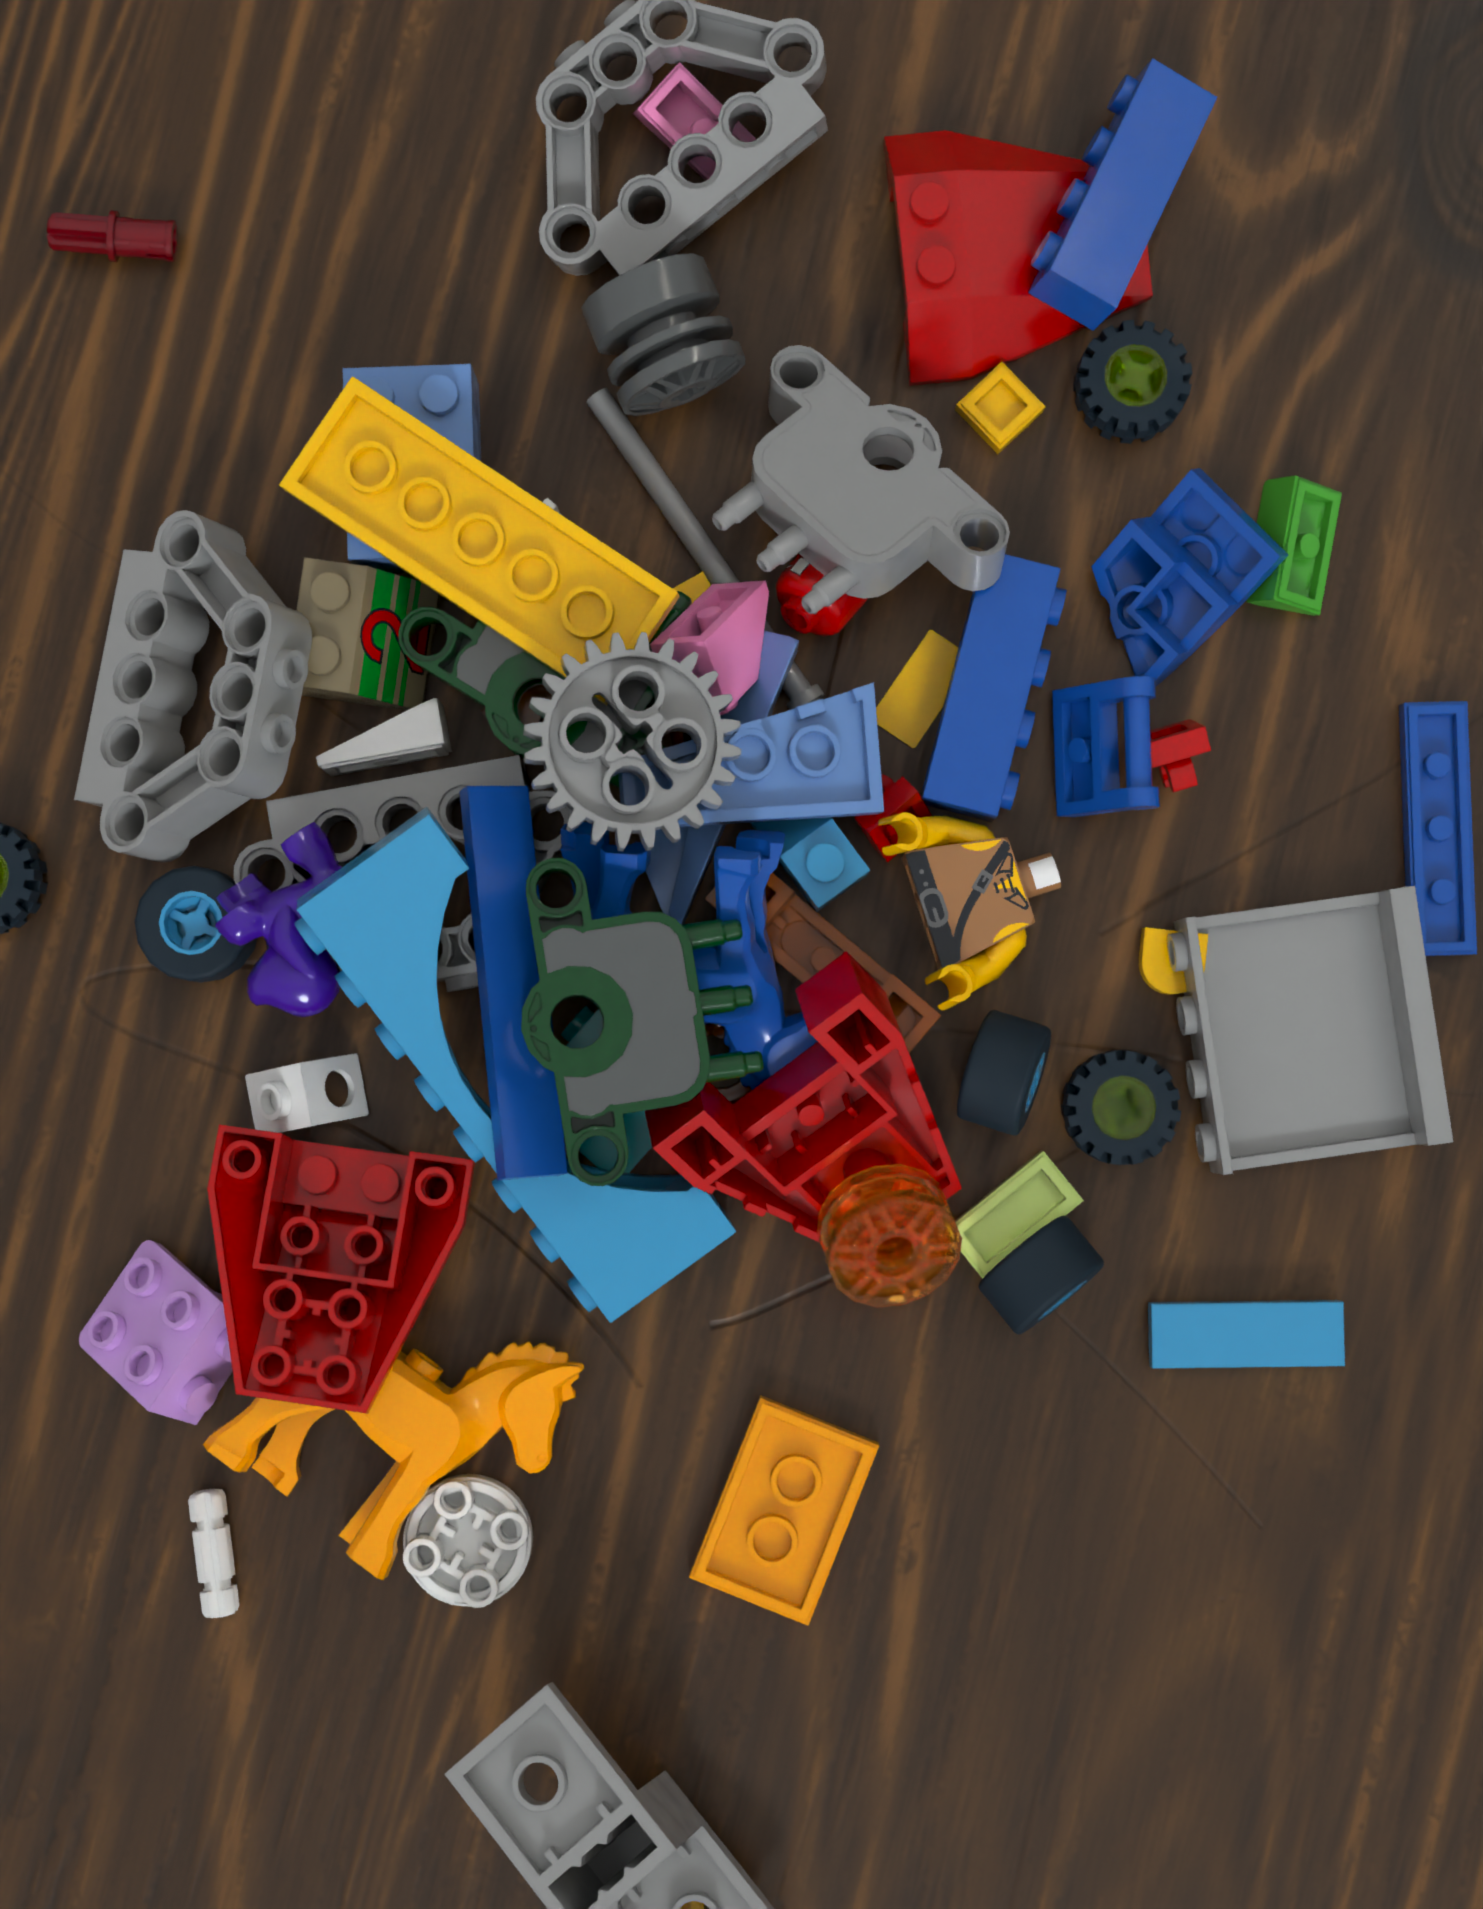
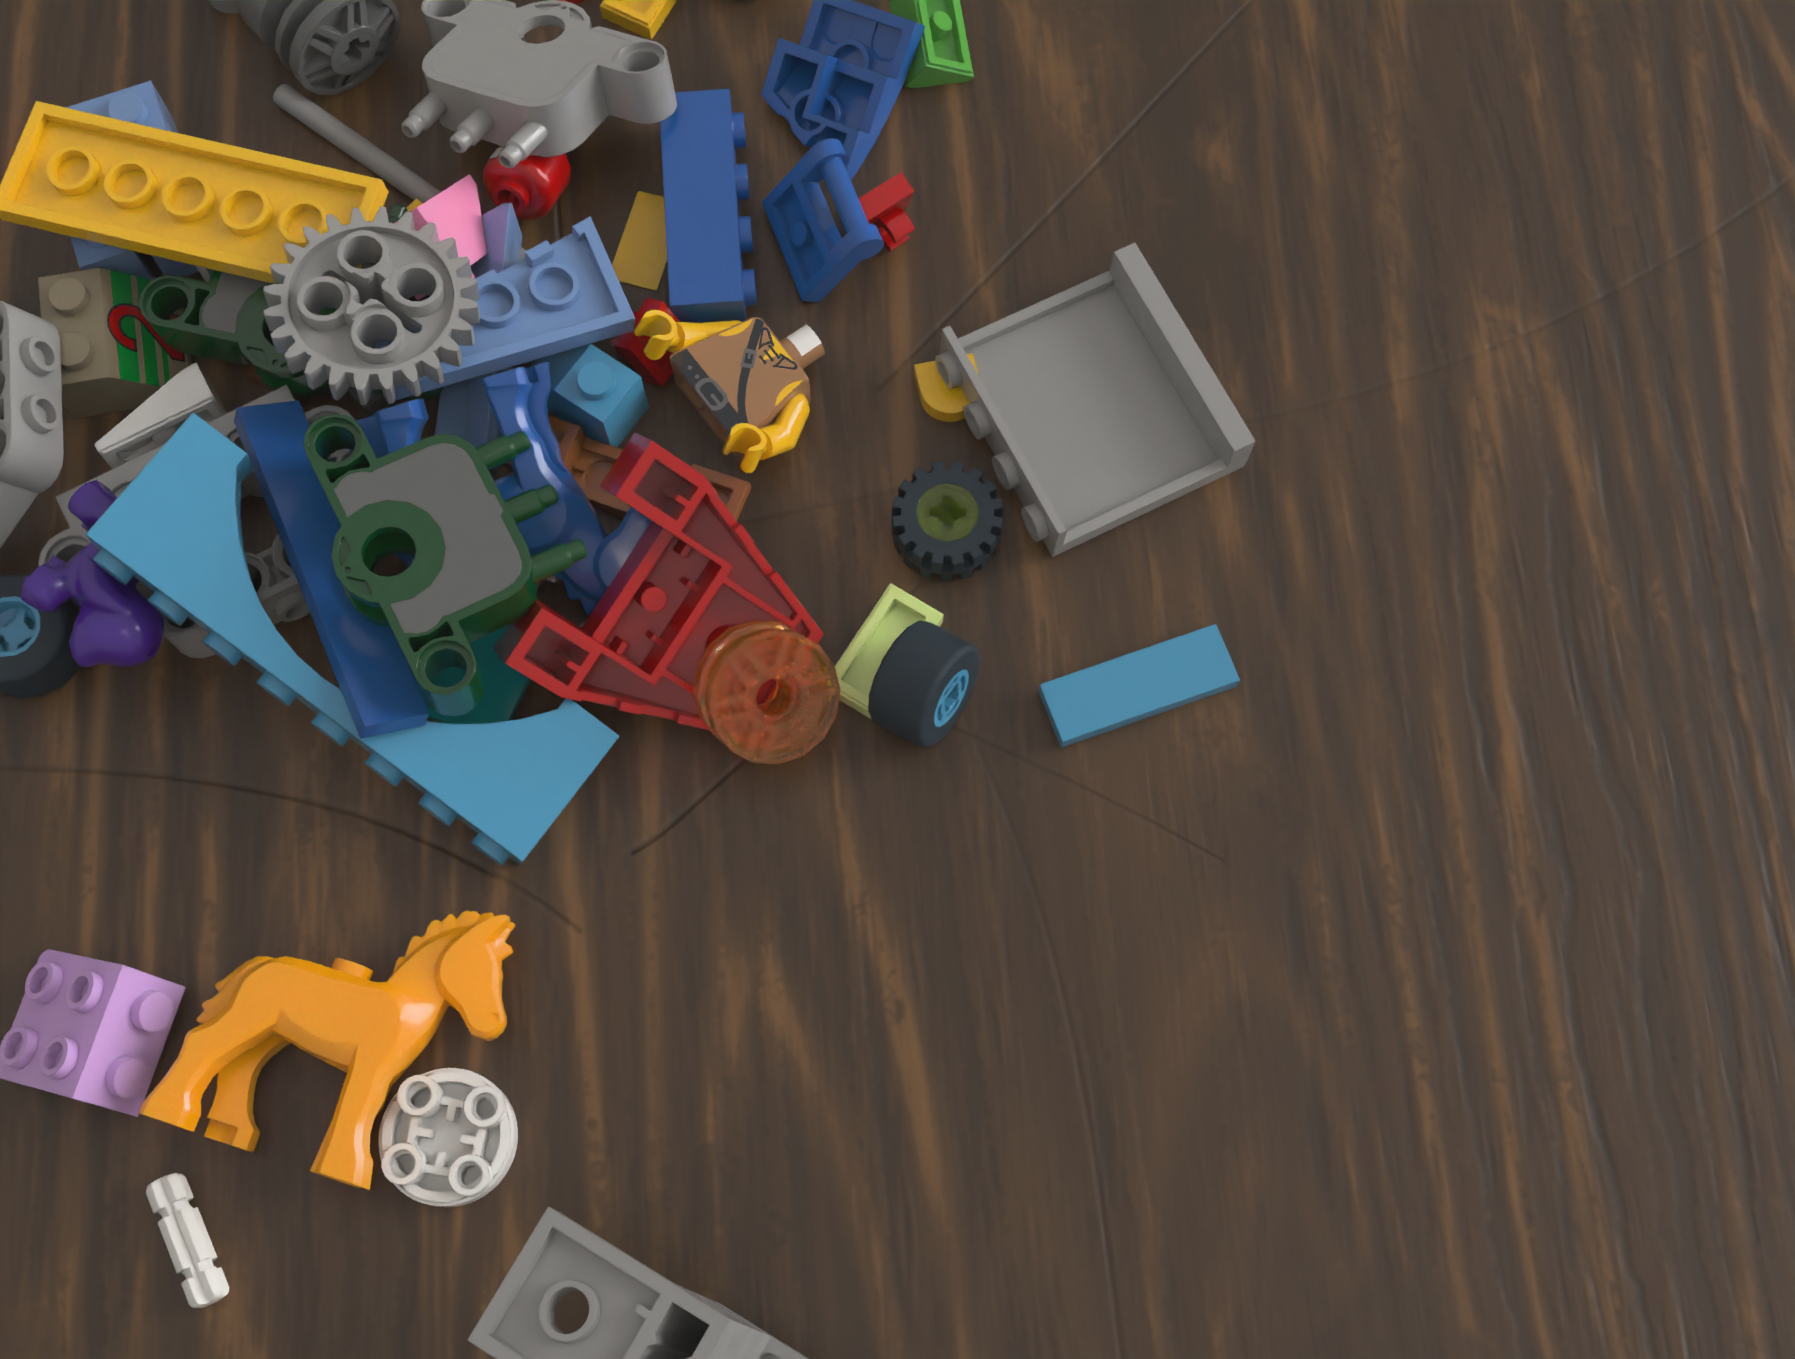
camera: 25 degrees left, 15 degrees down
(296, 1094) = (158, 758): white bracket -> none
(327, 1259) = (218, 891): red wedge -> none
(784, 1510) = (756, 1000): light orange tile -> none
(1003, 1072) = (825, 517): black wheel -> none
(1439, 823) = (1141, 202): blue tile -> none

